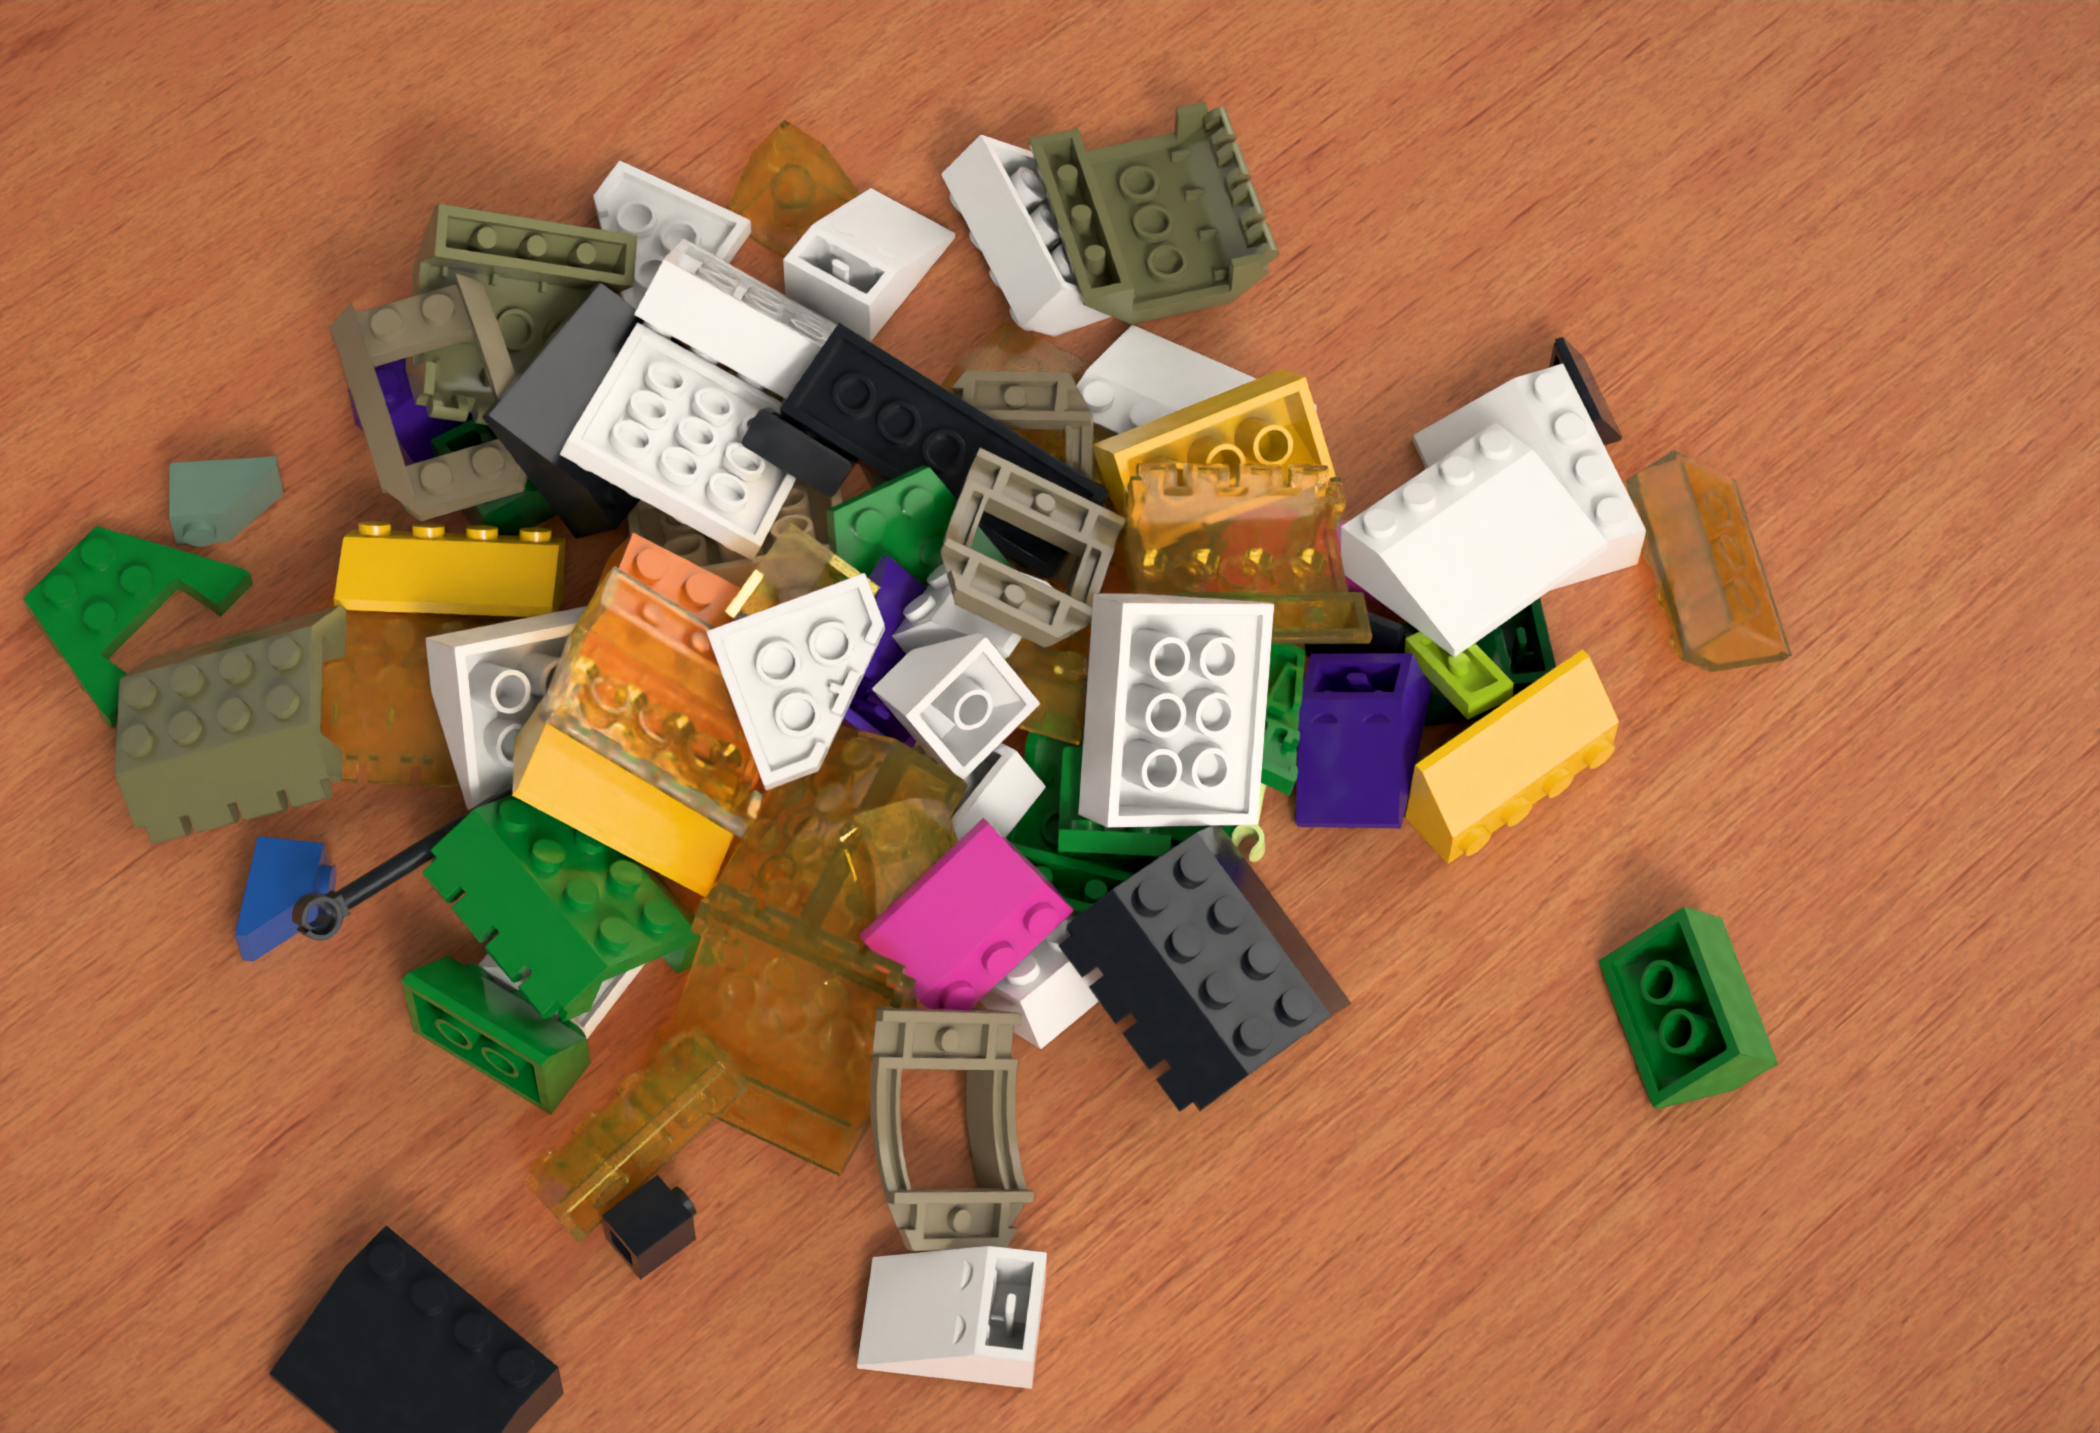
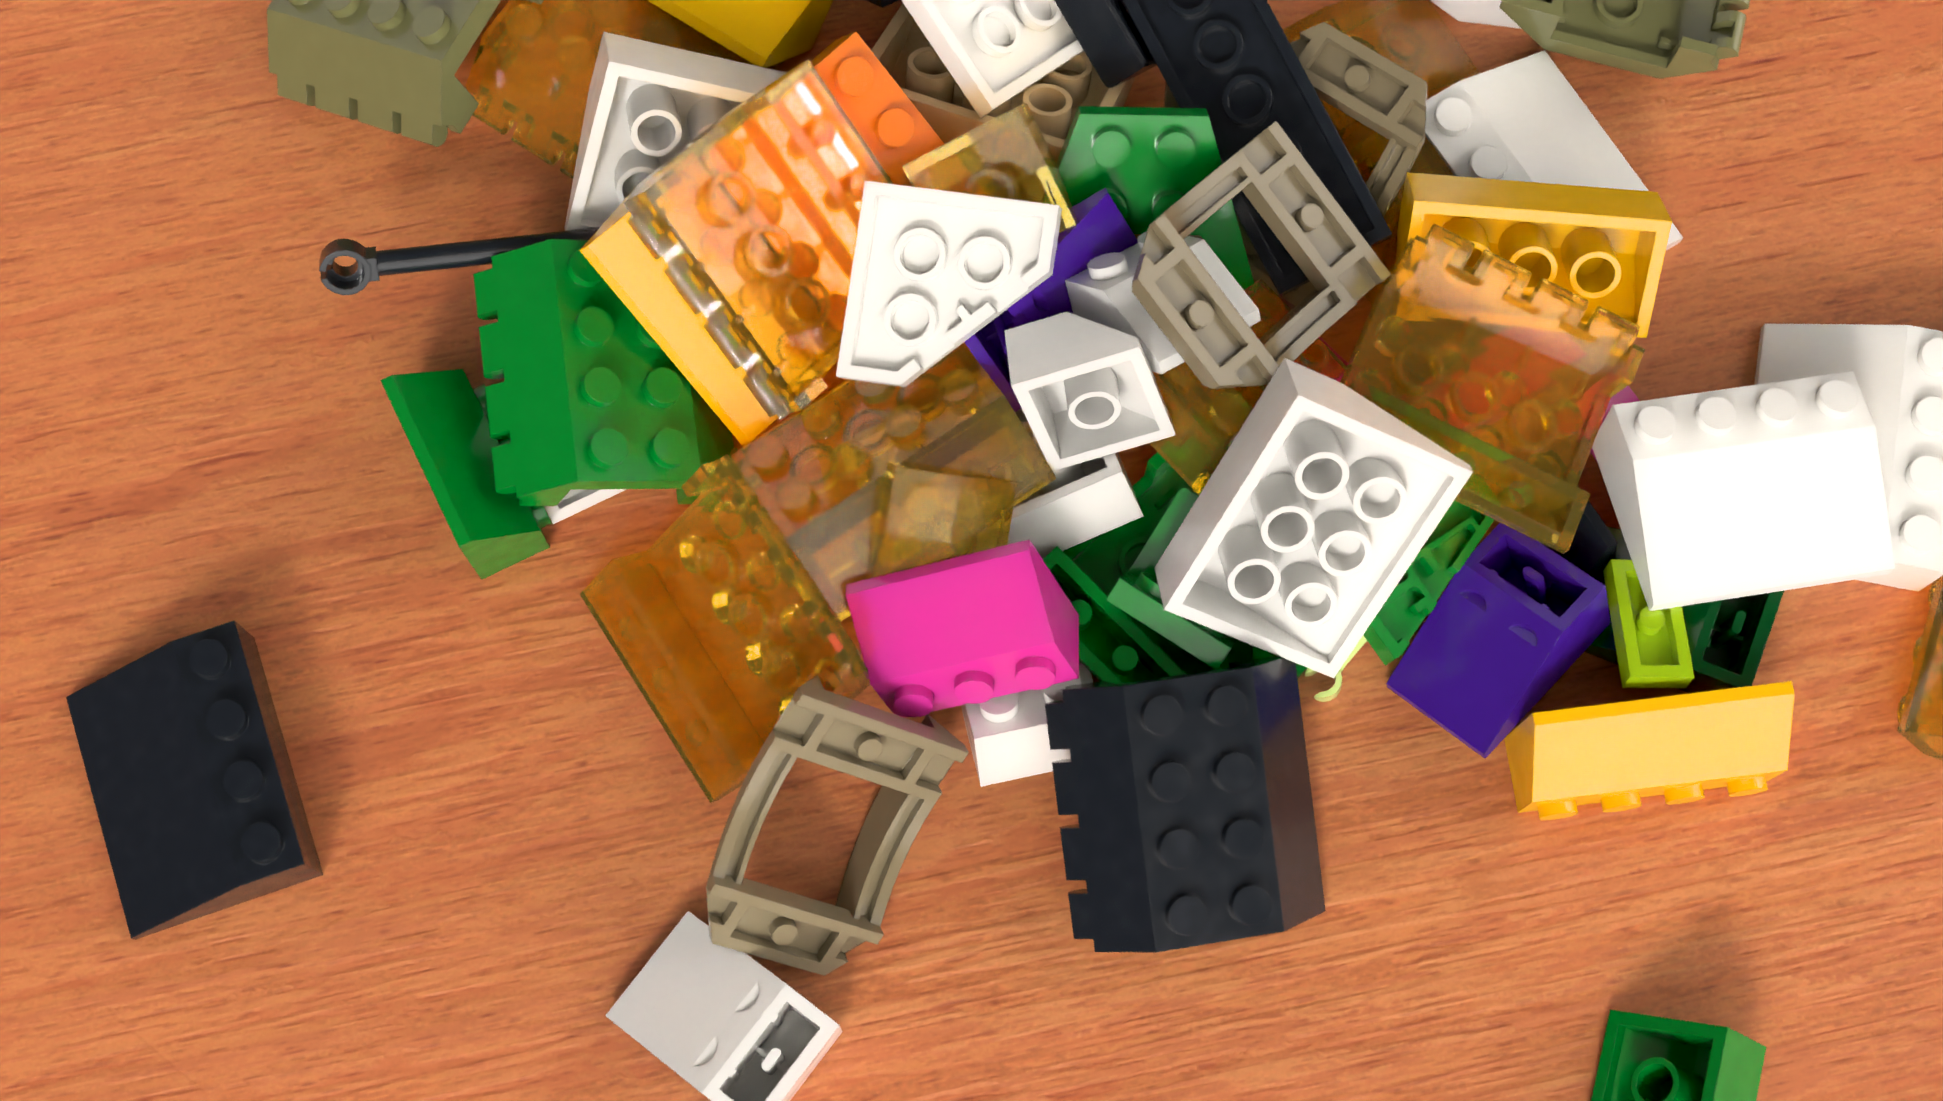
camera: 30 degrees right, 15 degrees up
(277, 879) = (359, 203): blue slope -> none
(636, 1132) = (522, 657): clear yellow slope -> none
(650, 1226) = (494, 756): black brick -> none

